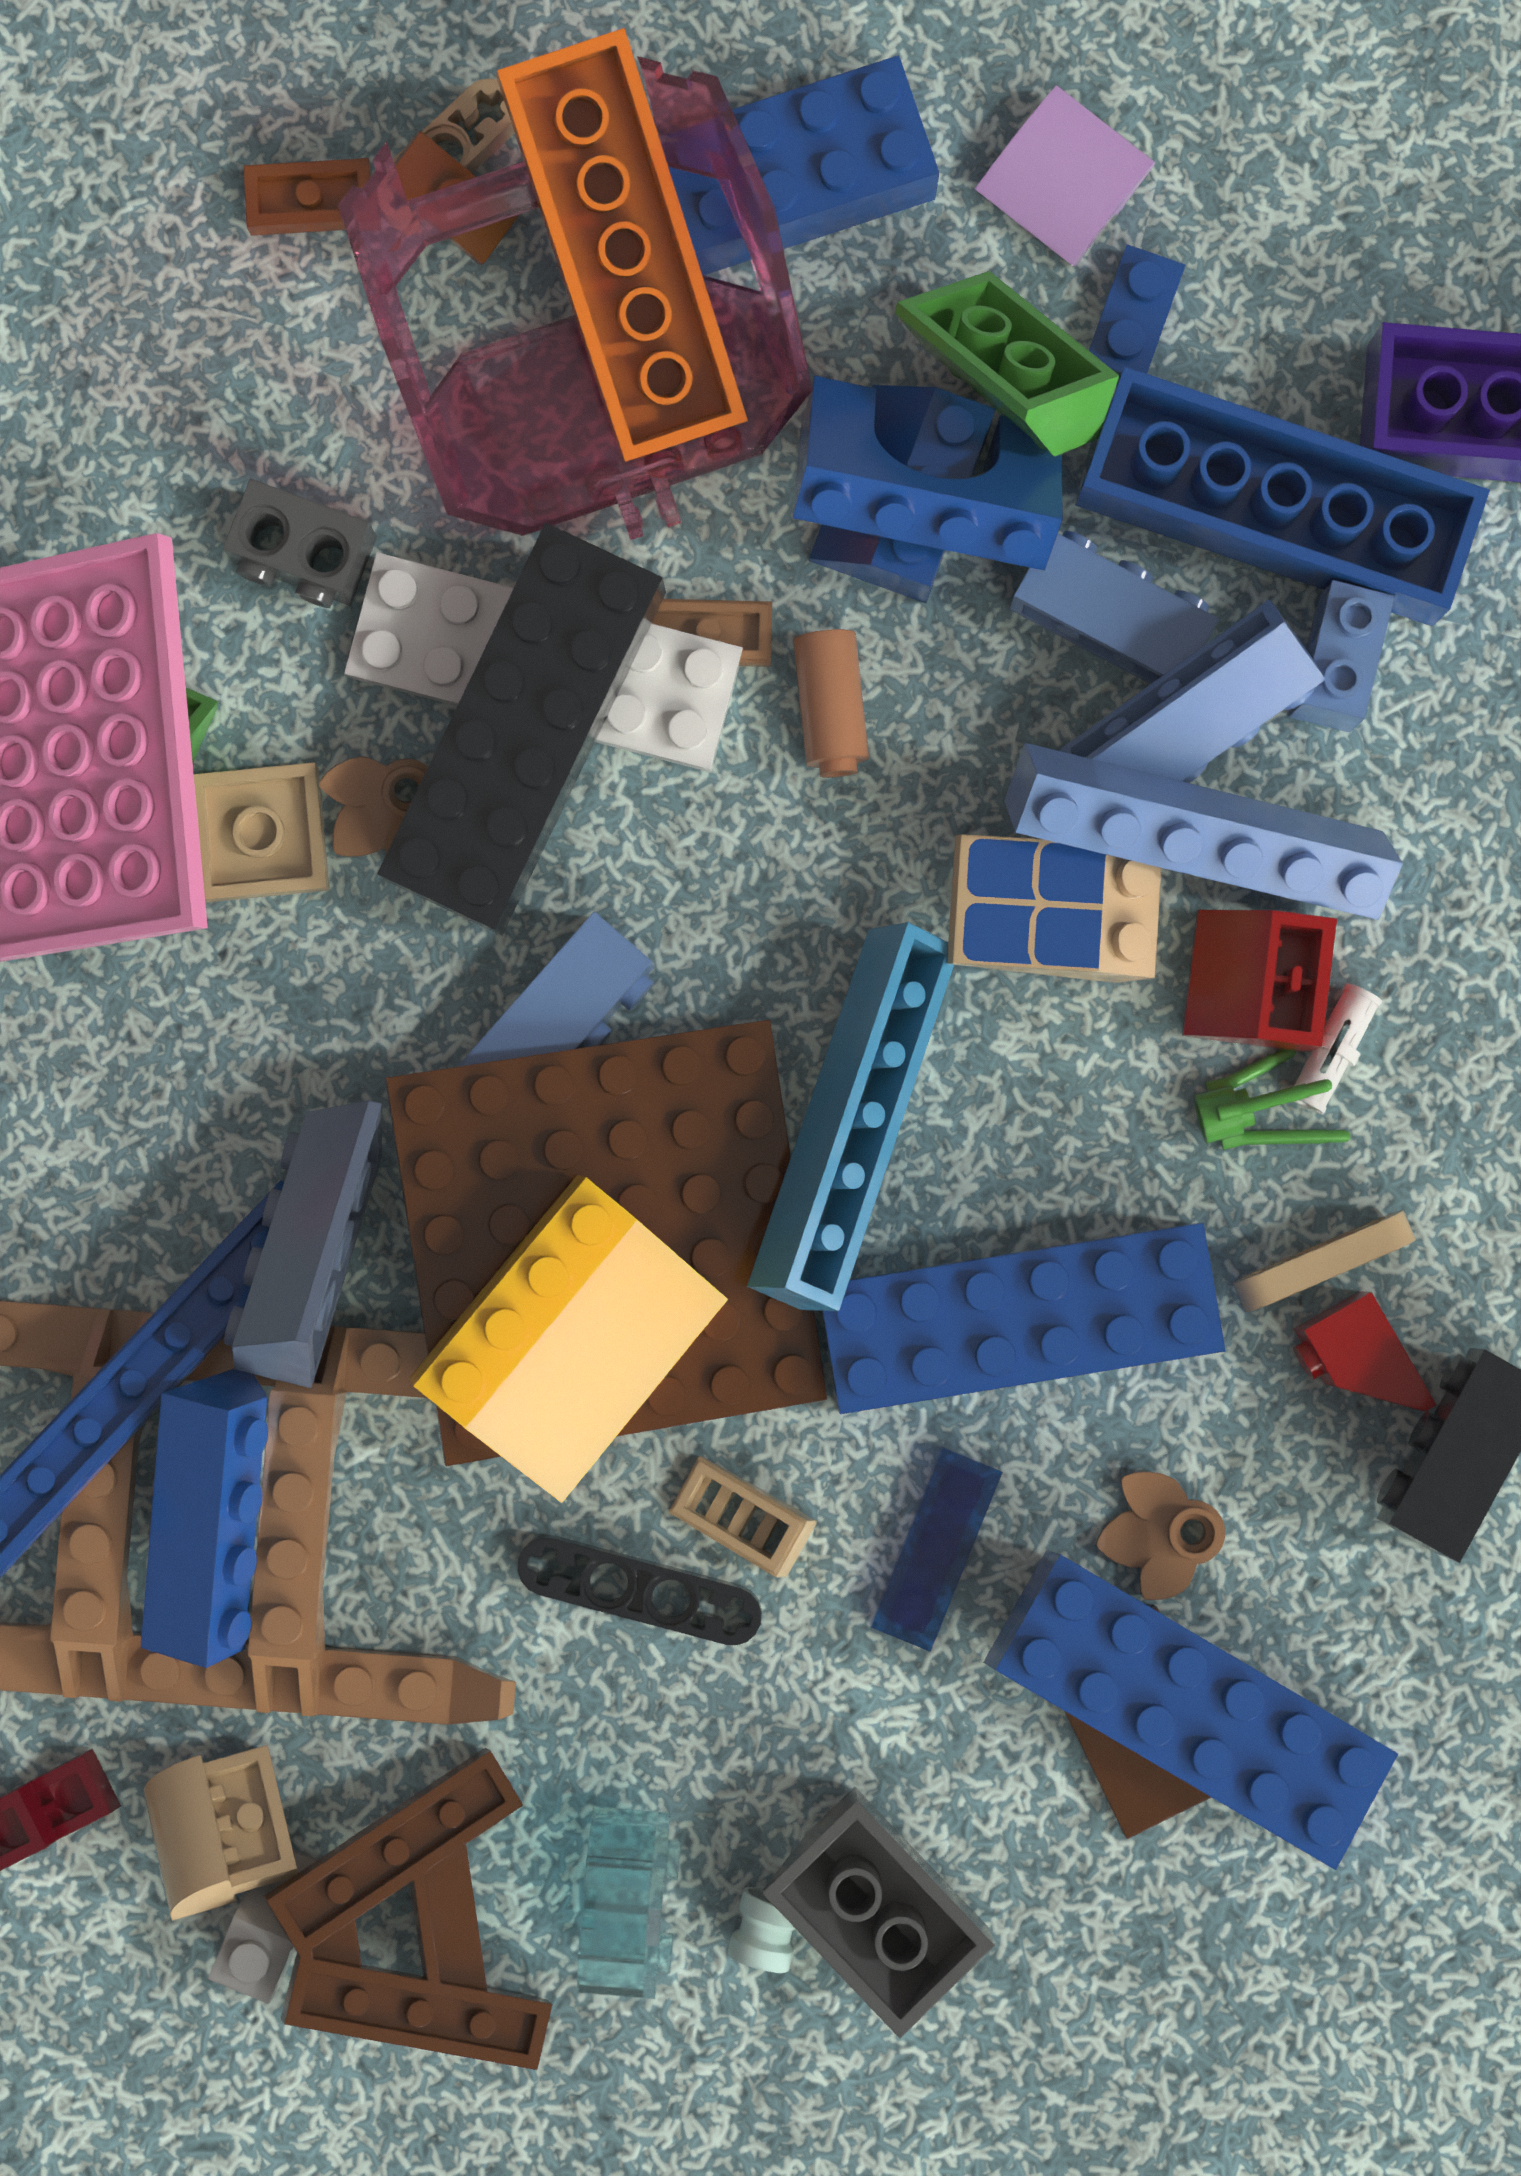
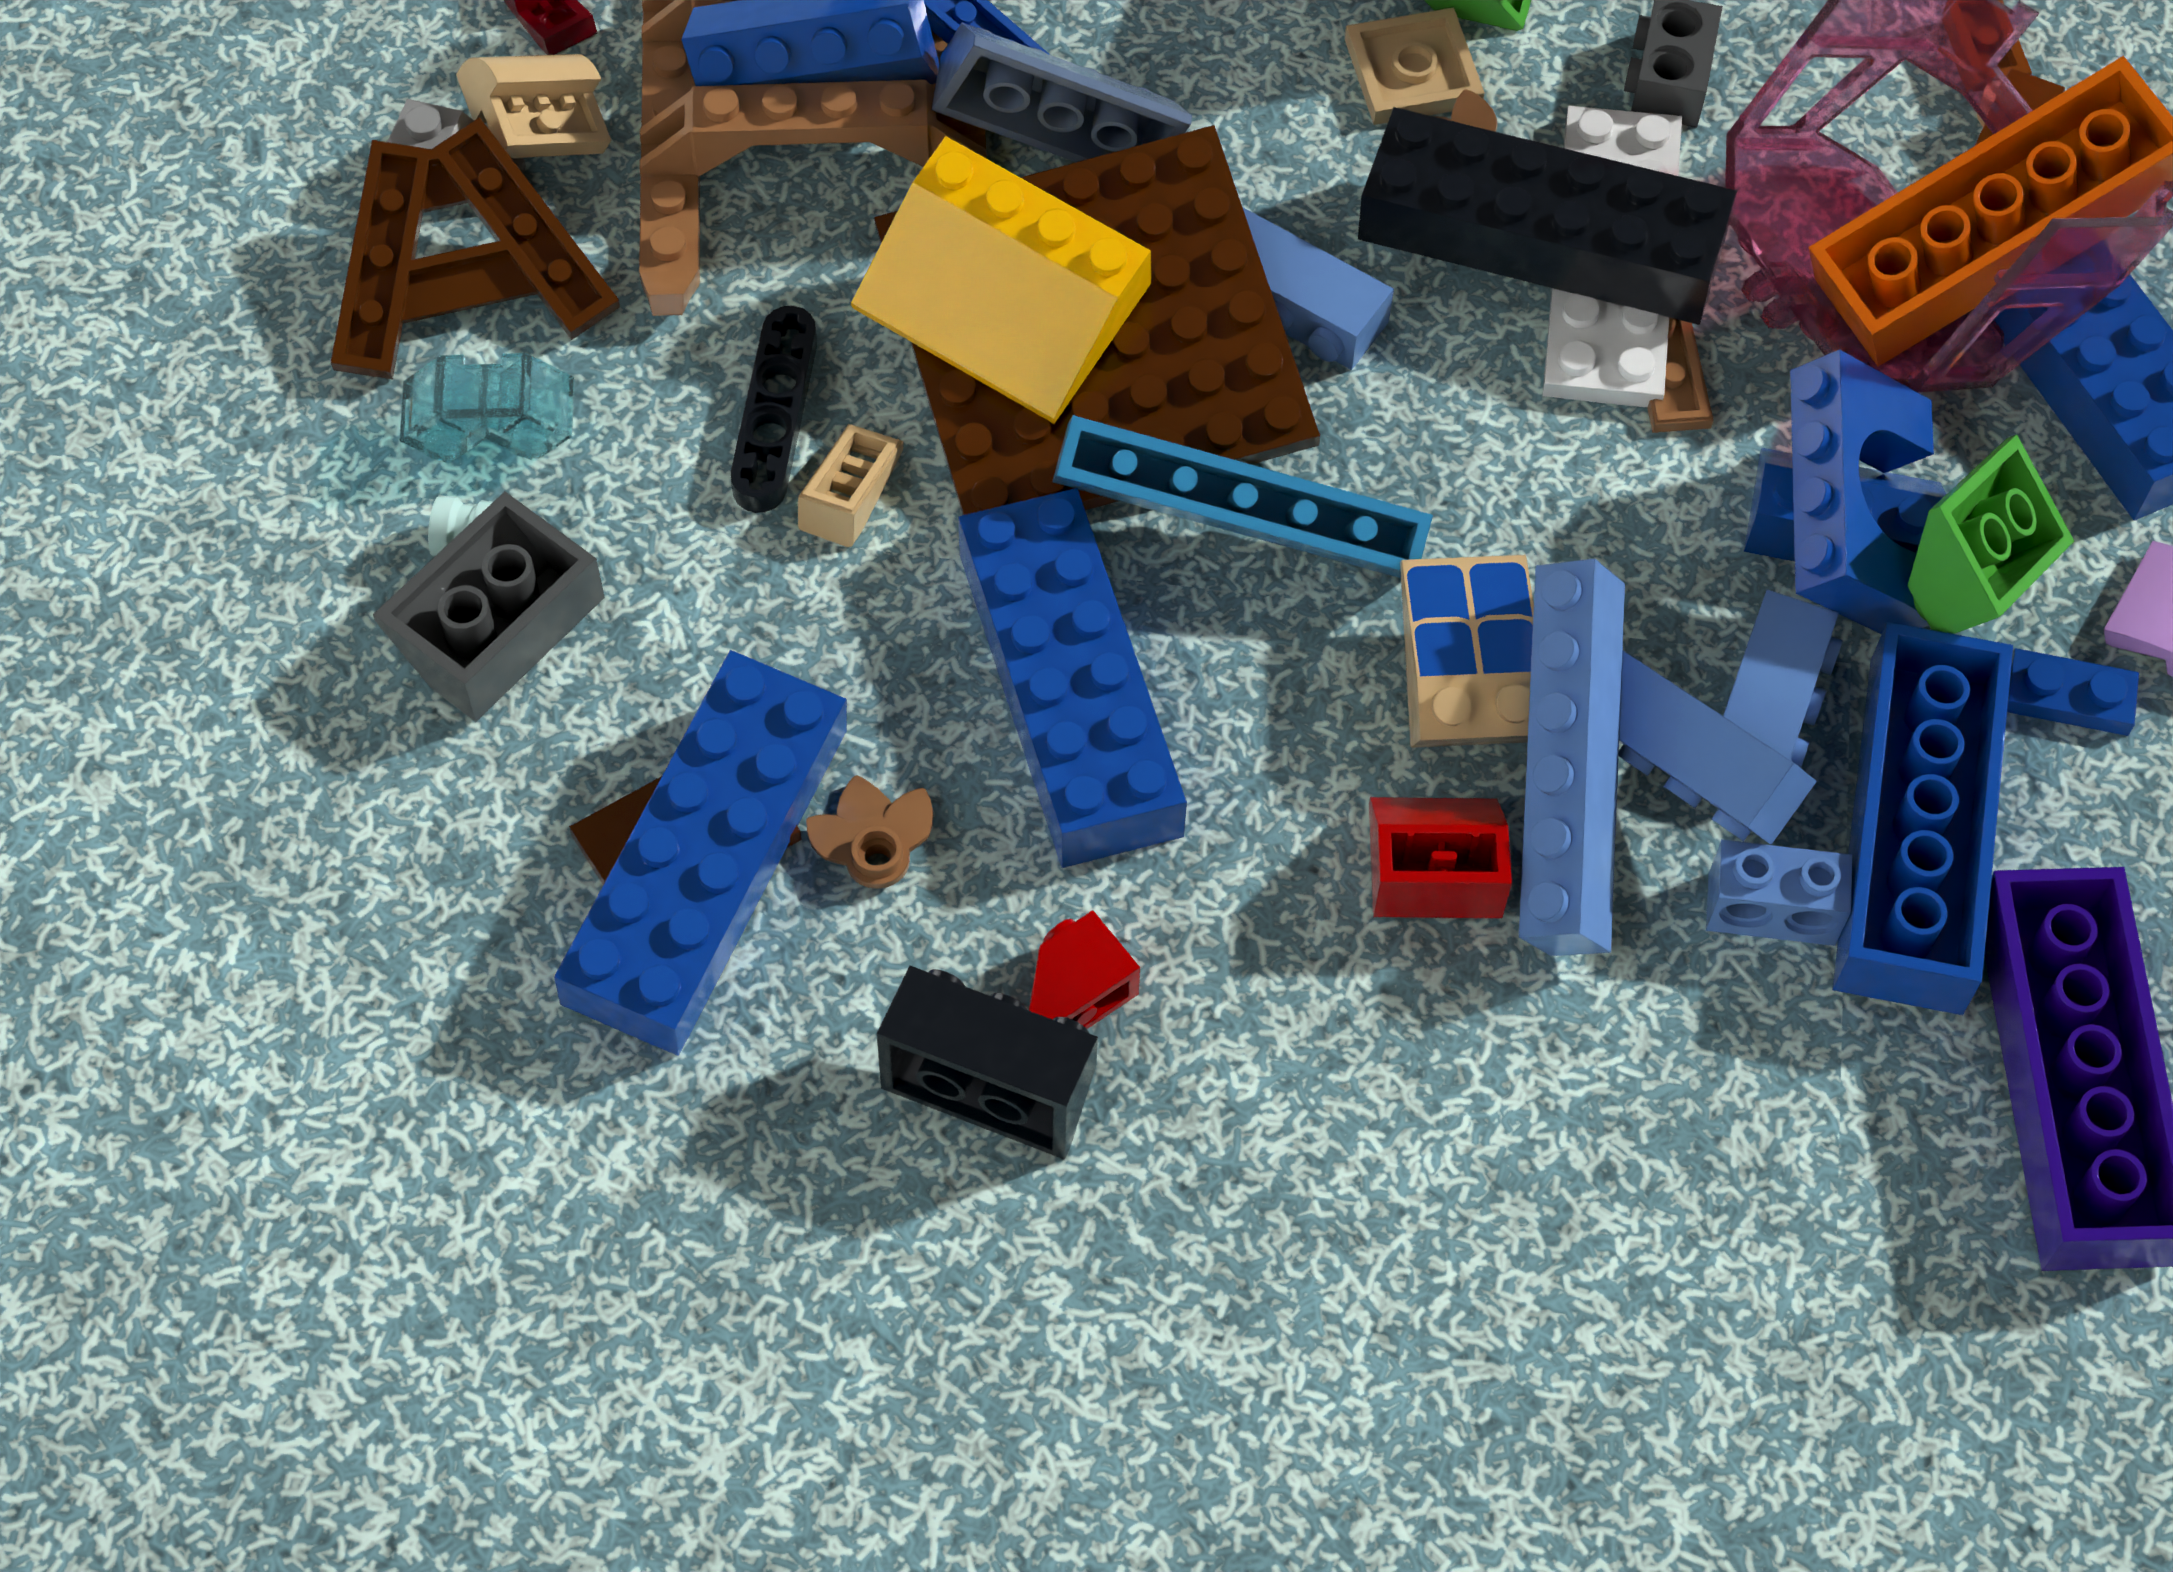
camera: 80 degrees right, 25 degrees down
(831, 701) = (1630, 468): nougat brick -> none
(936, 1549) = (837, 641): clear blue plate -> none
(1227, 1112) = (1303, 846): bright green plant -> none
(1324, 1261) = (1165, 943): tan beam -> none
(1355, 1010) = (1380, 934): white pin -> none

